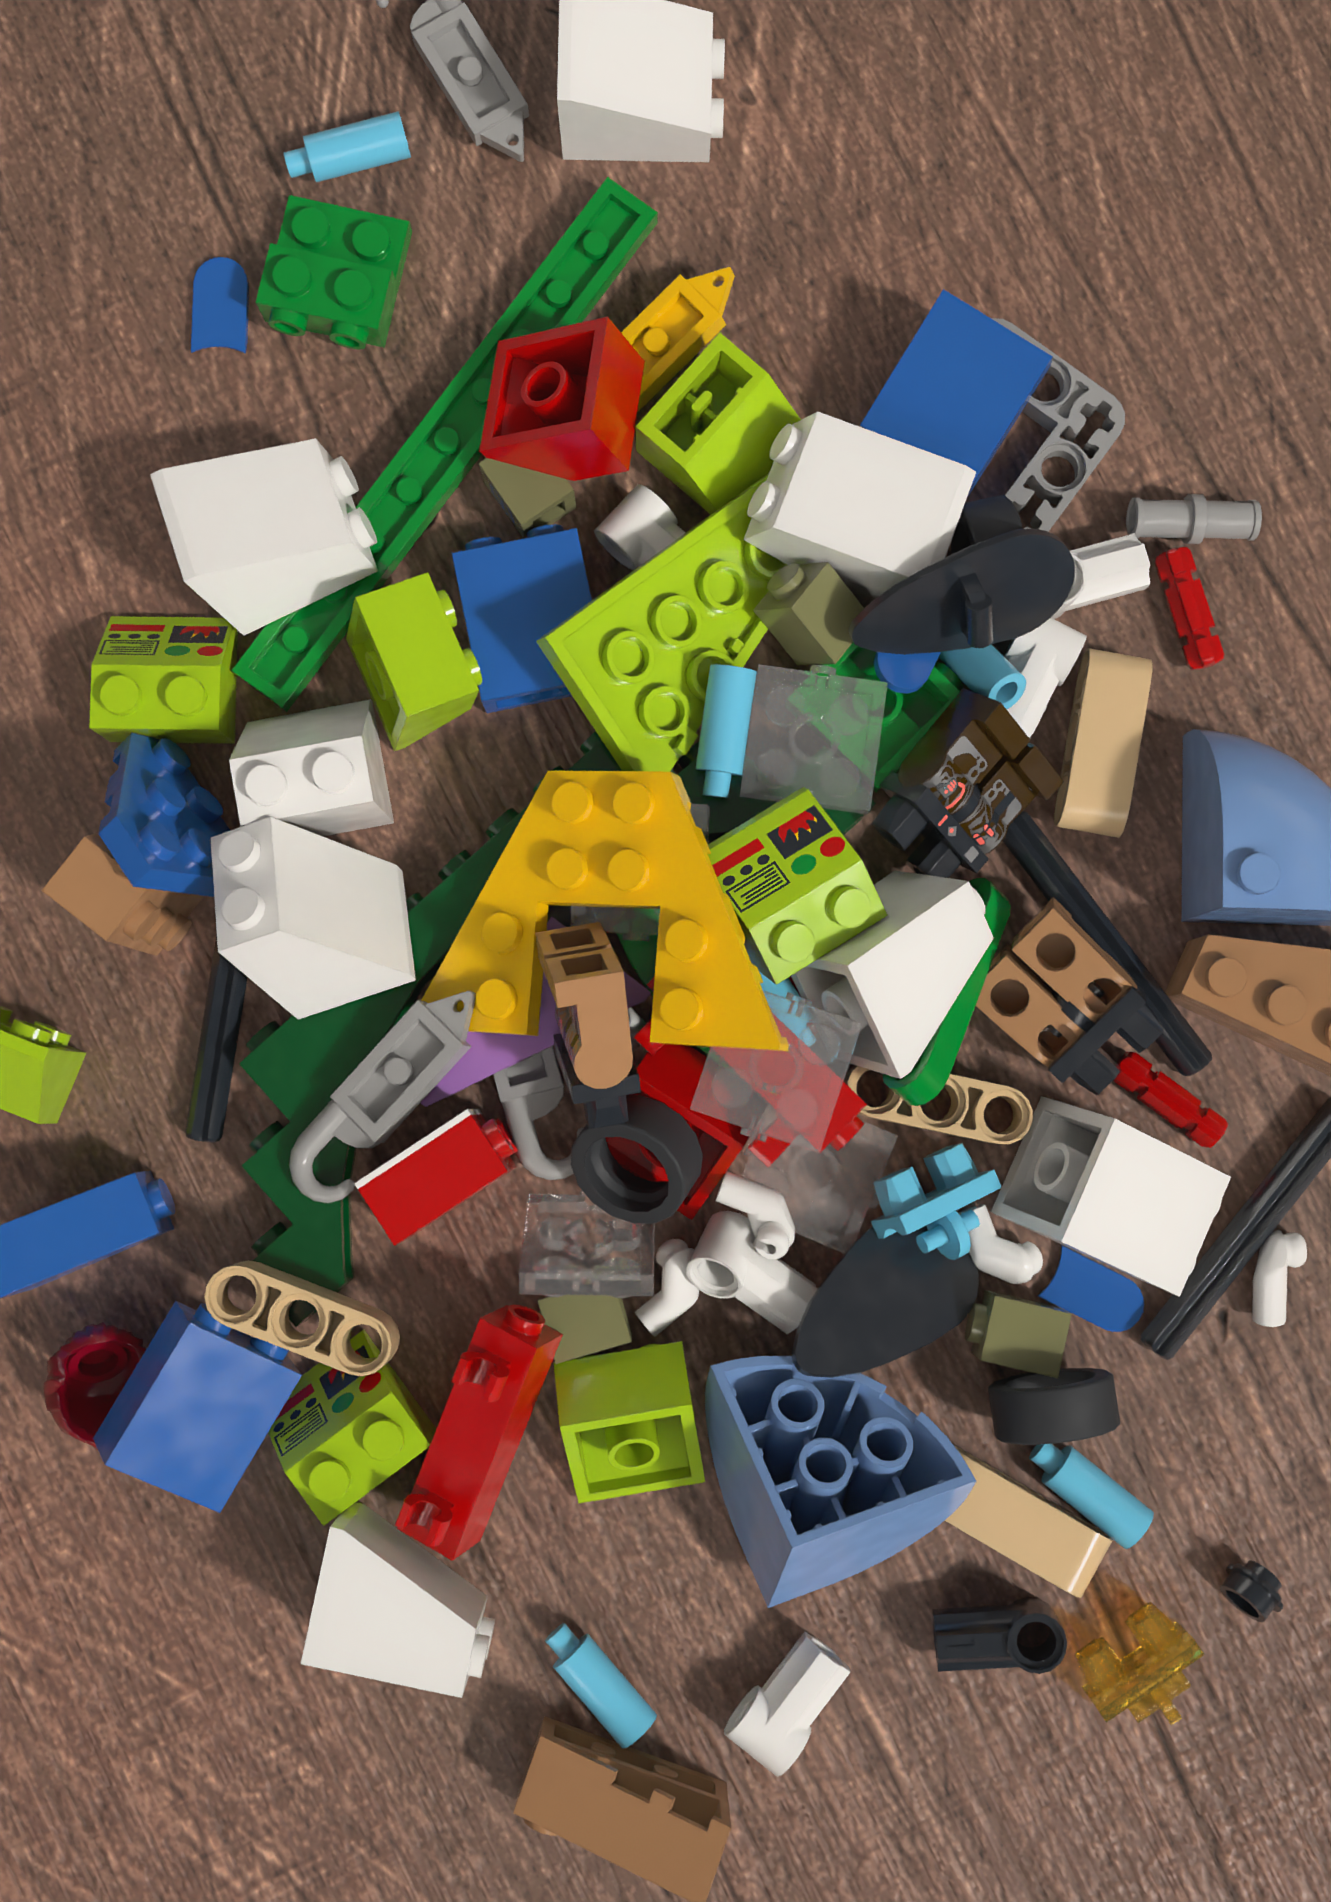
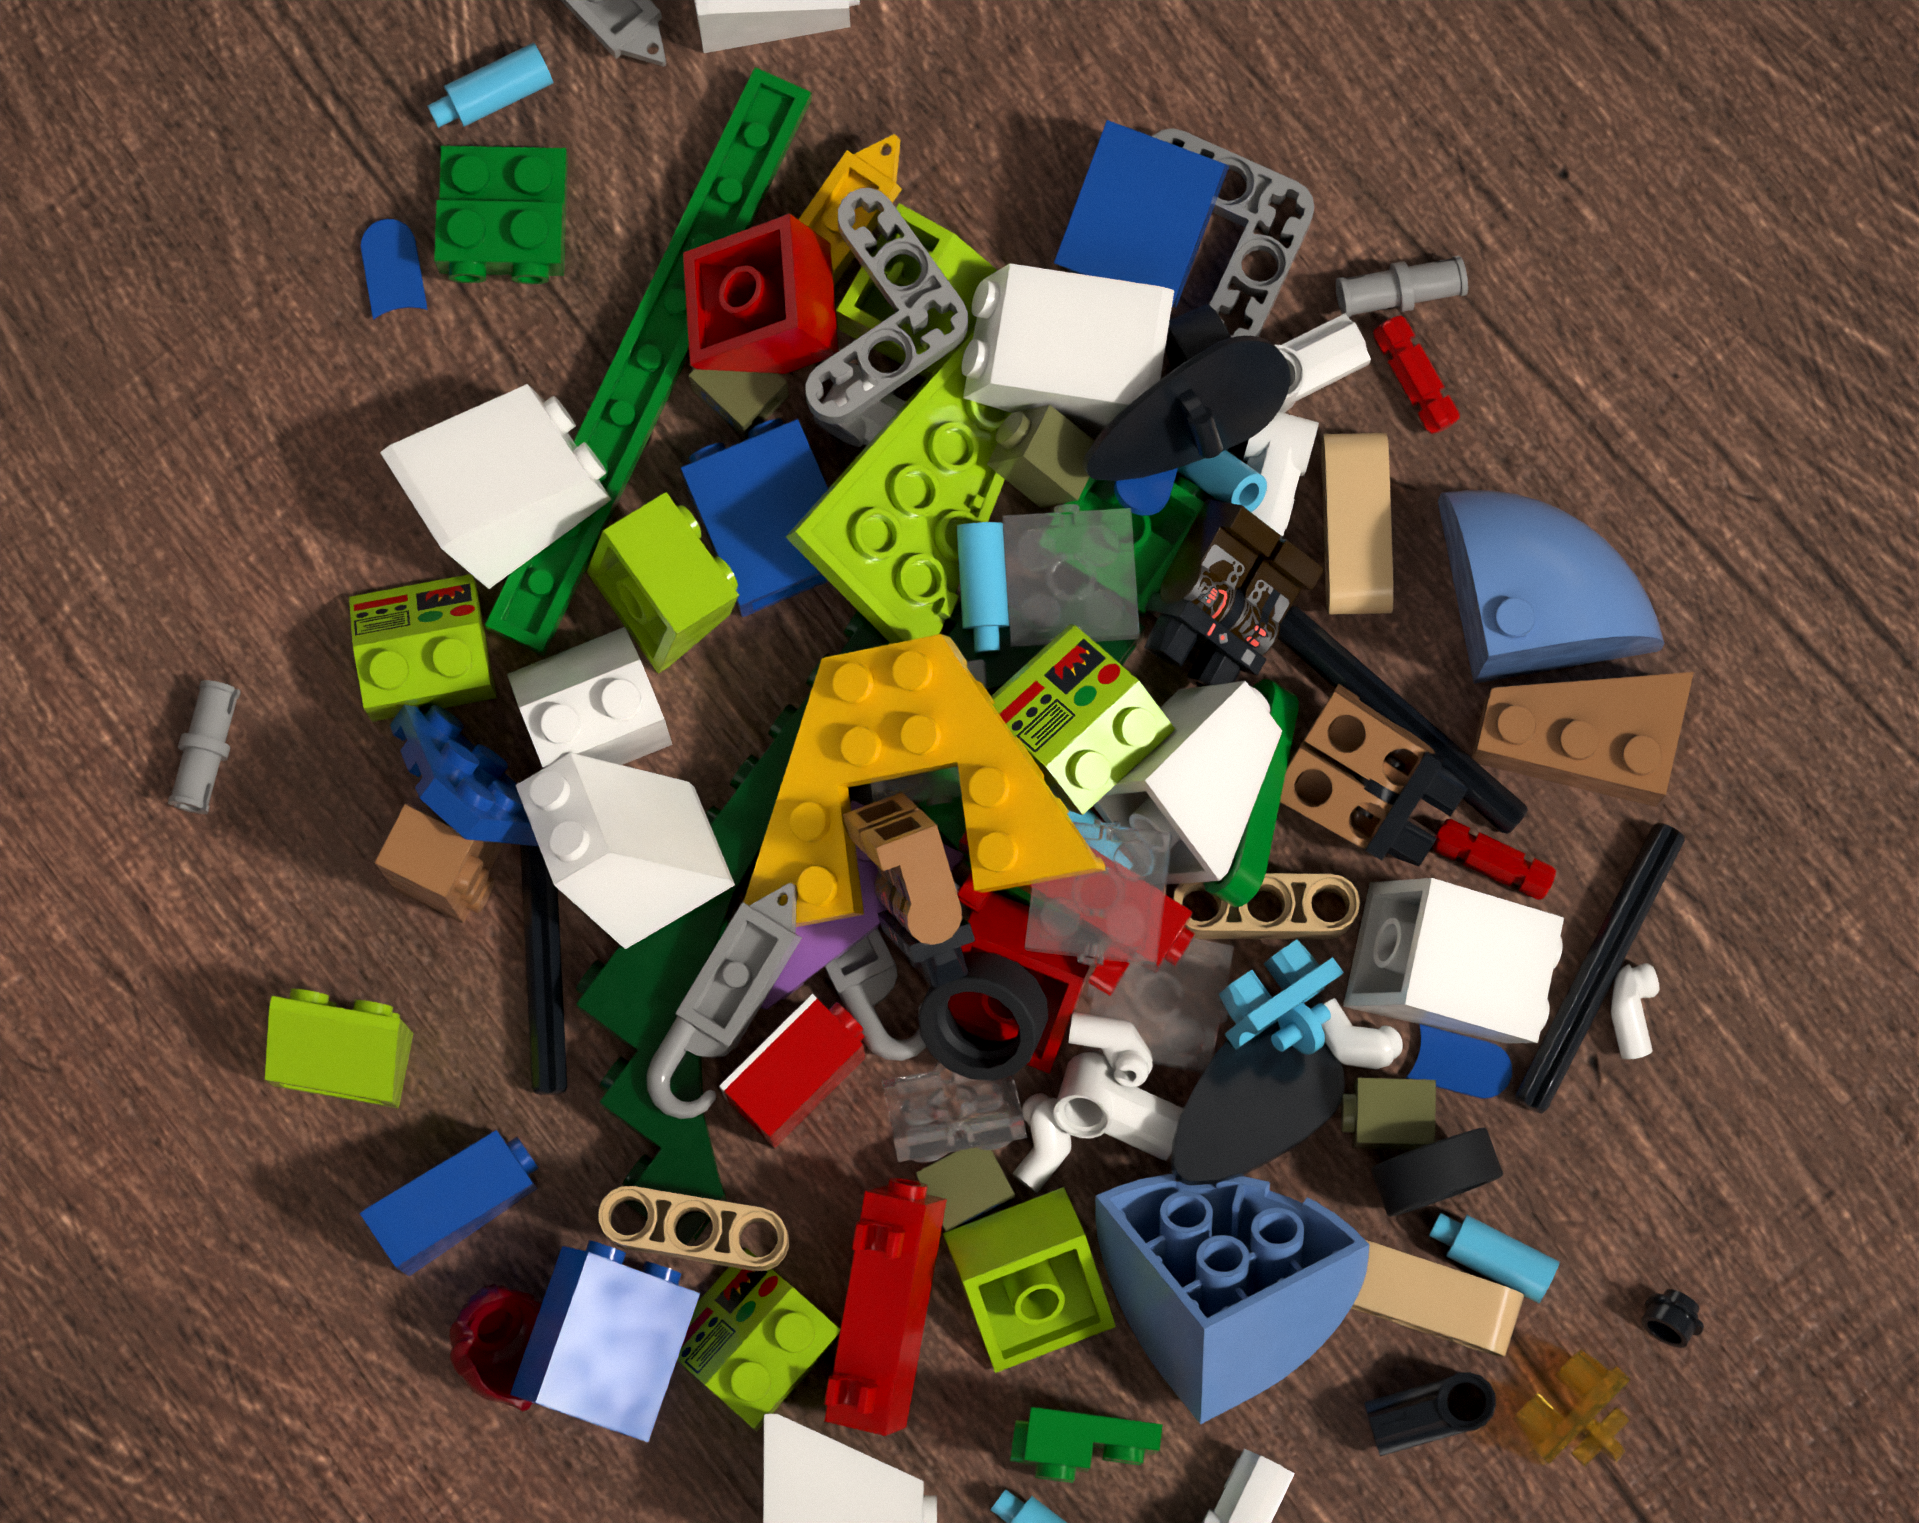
camera: 10 degrees left, 5 degrees down
(629, 1596) = (1064, 1442): none -> green plate
(708, 433) = (908, 302): none -> light grey beam

